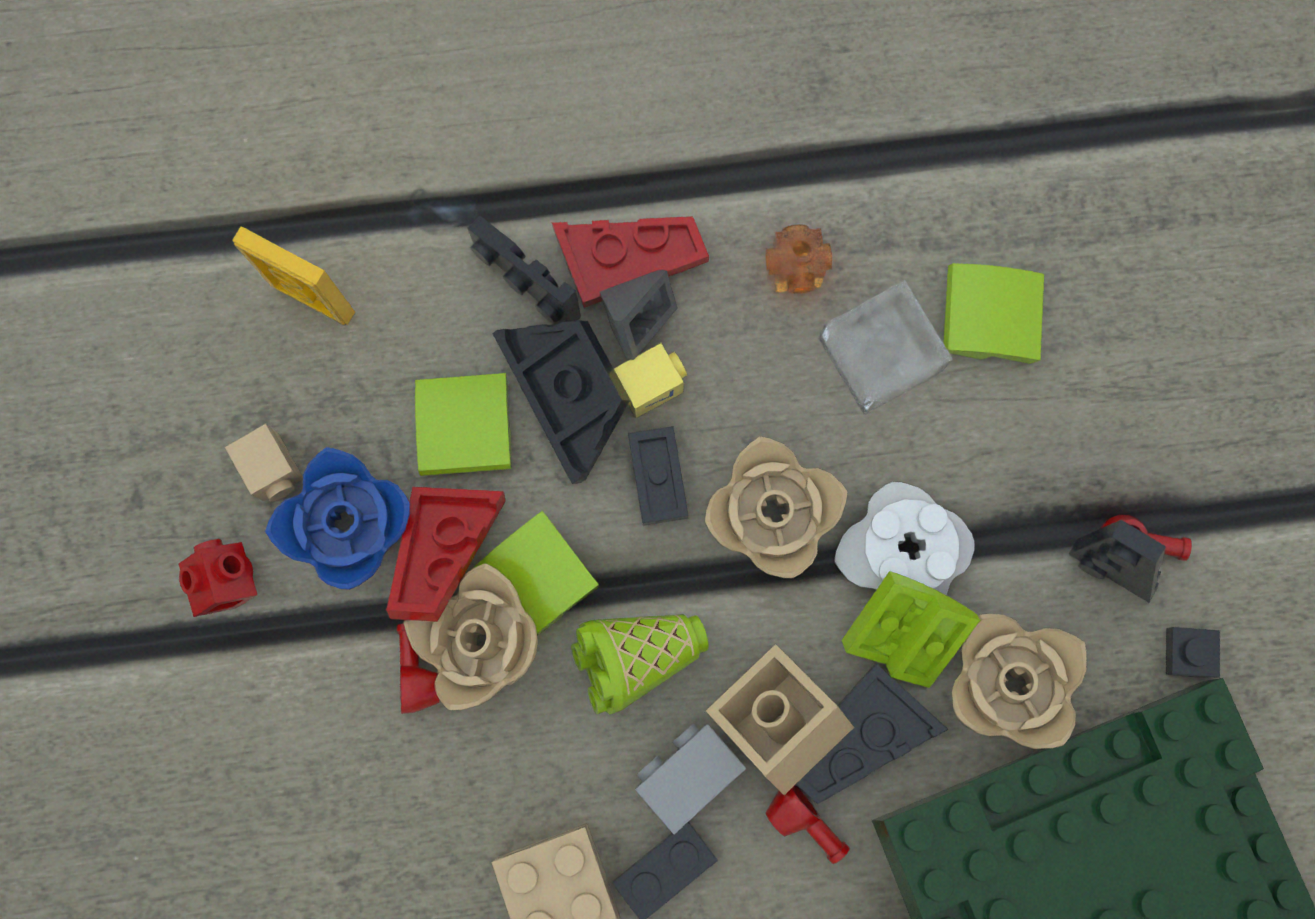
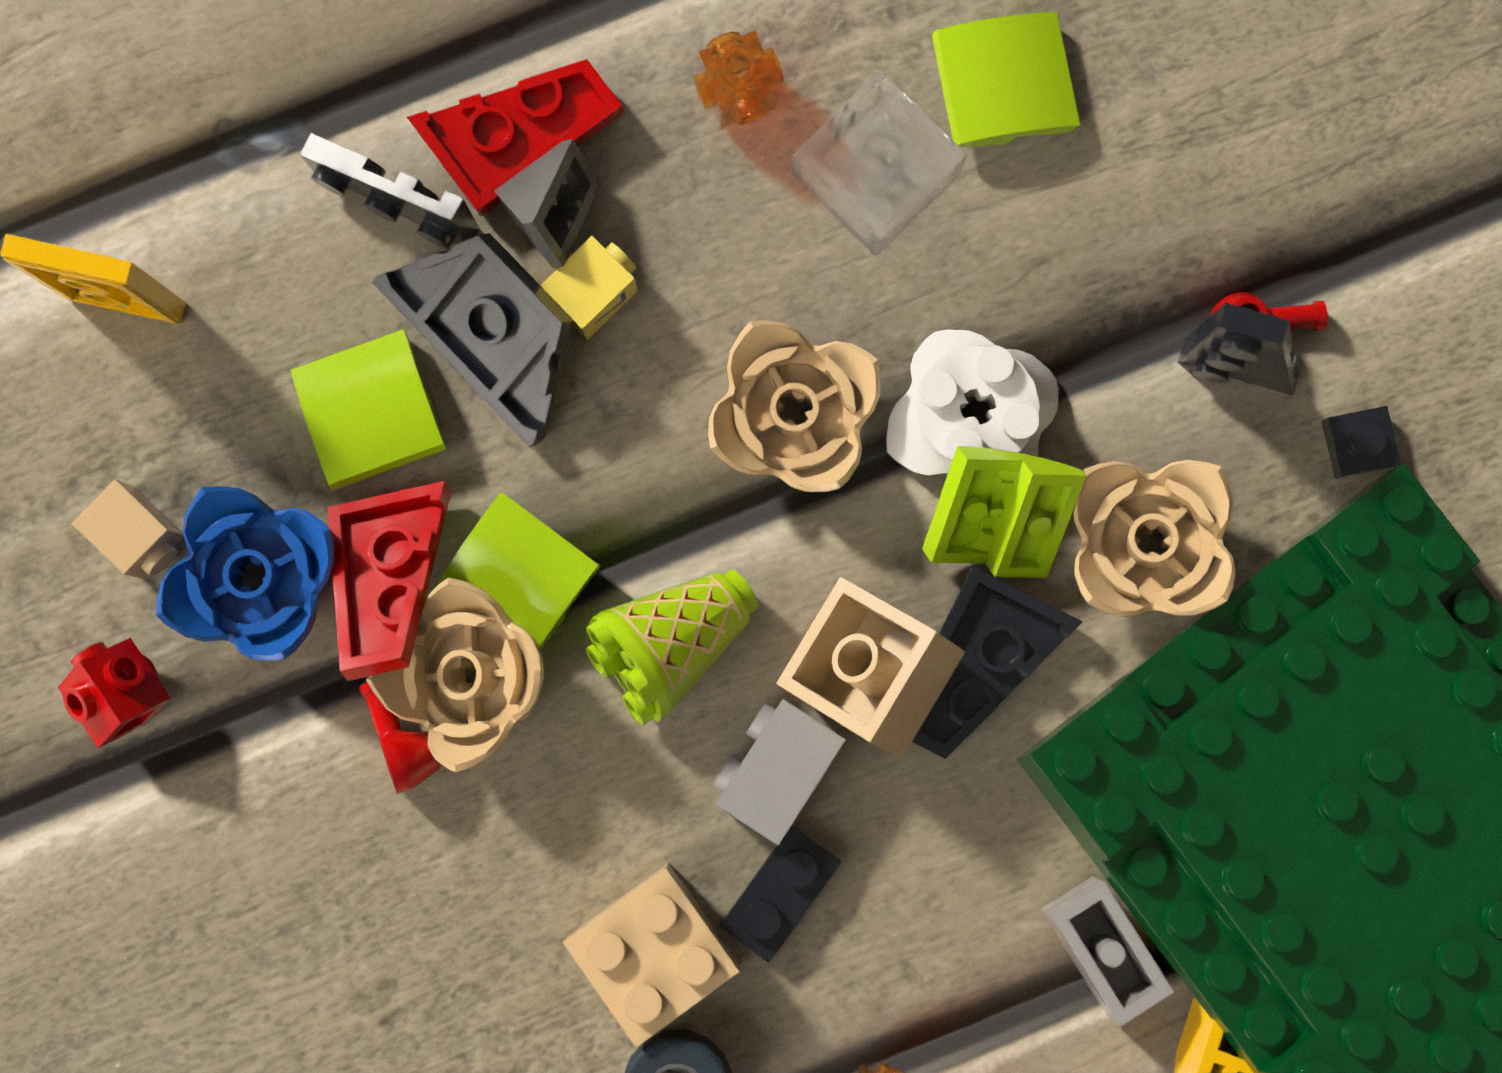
camera: 15 degrees left, 5 degrees up
(658, 475) = (635, 406): black plate -> none
(796, 813) = (923, 776): red bar -> none

